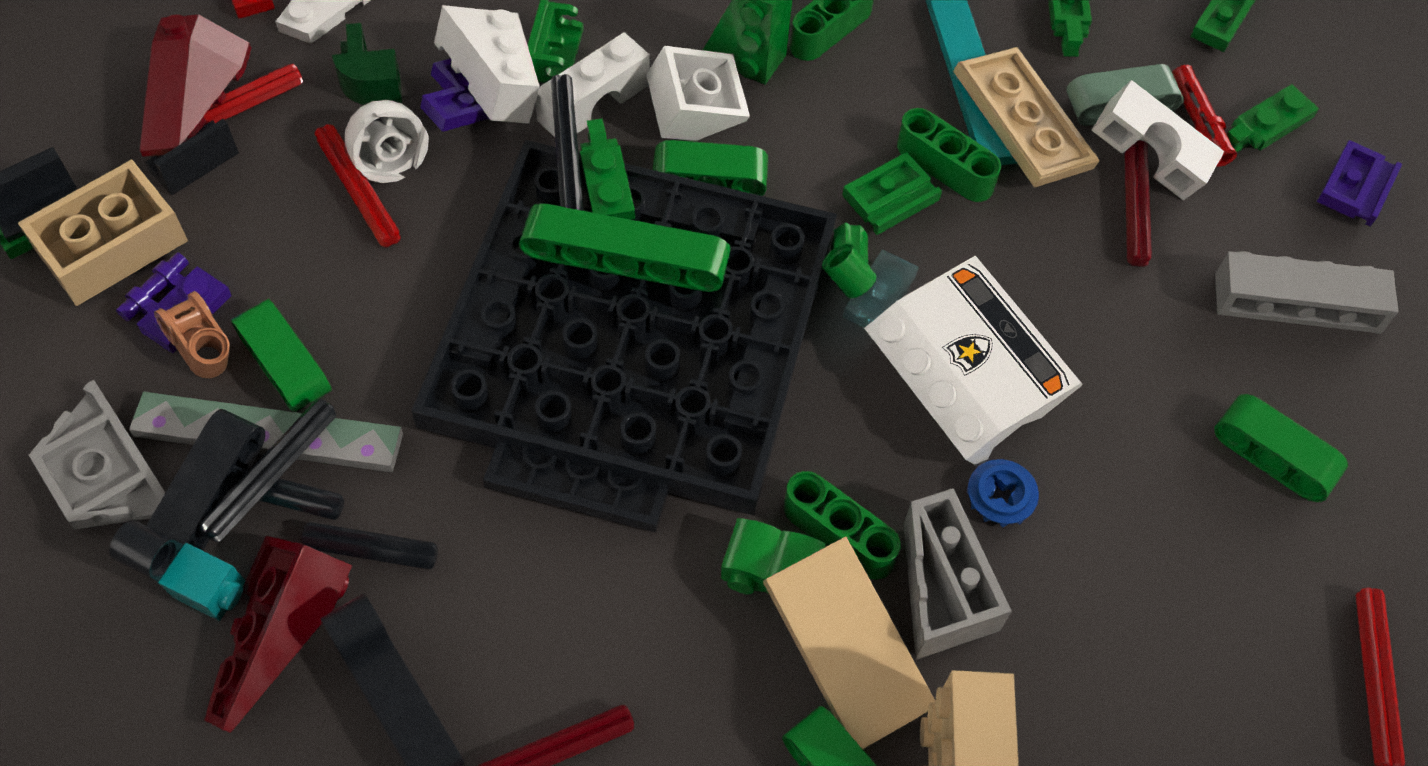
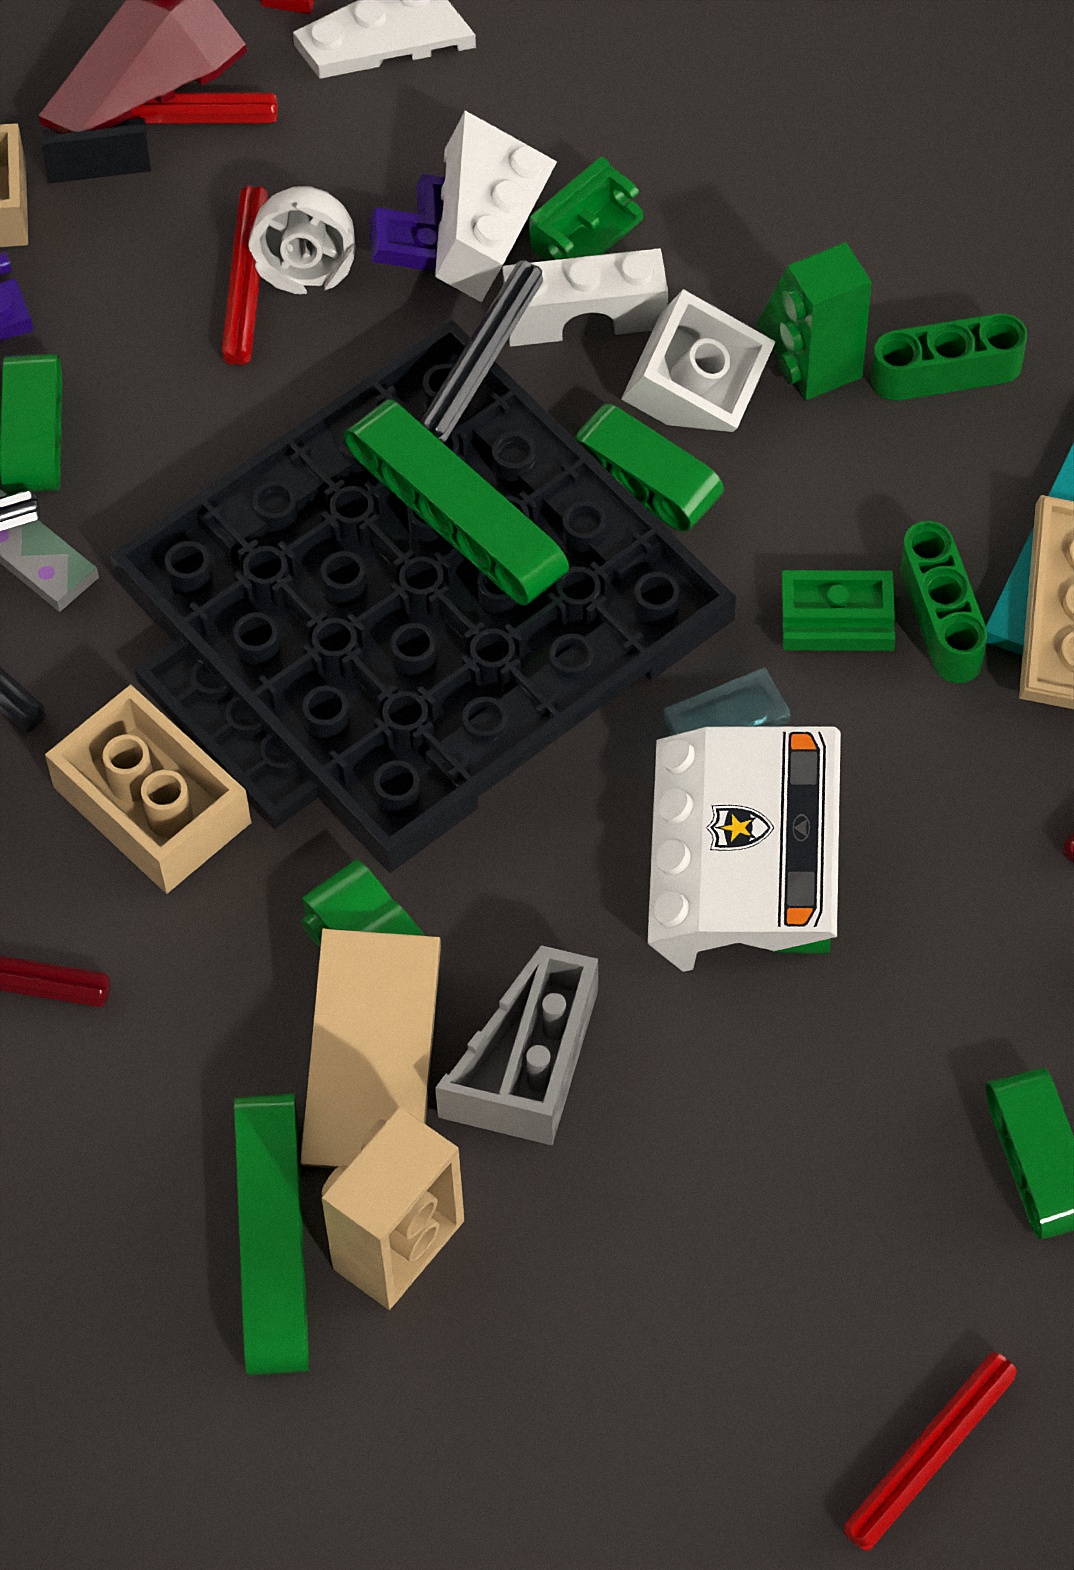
camera: 40 degrees right, 0 degrees up
(364, 73) = (344, 146): dark green brick -> none
(558, 555) = (148, 788): none -> tan brick
(605, 174) = (503, 408): green hinge -> none
(835, 505) = (466, 910): green beam -> none
(848, 261) = (706, 658): green piece -> none
(1006, 476) = (660, 991): blue gear -> none

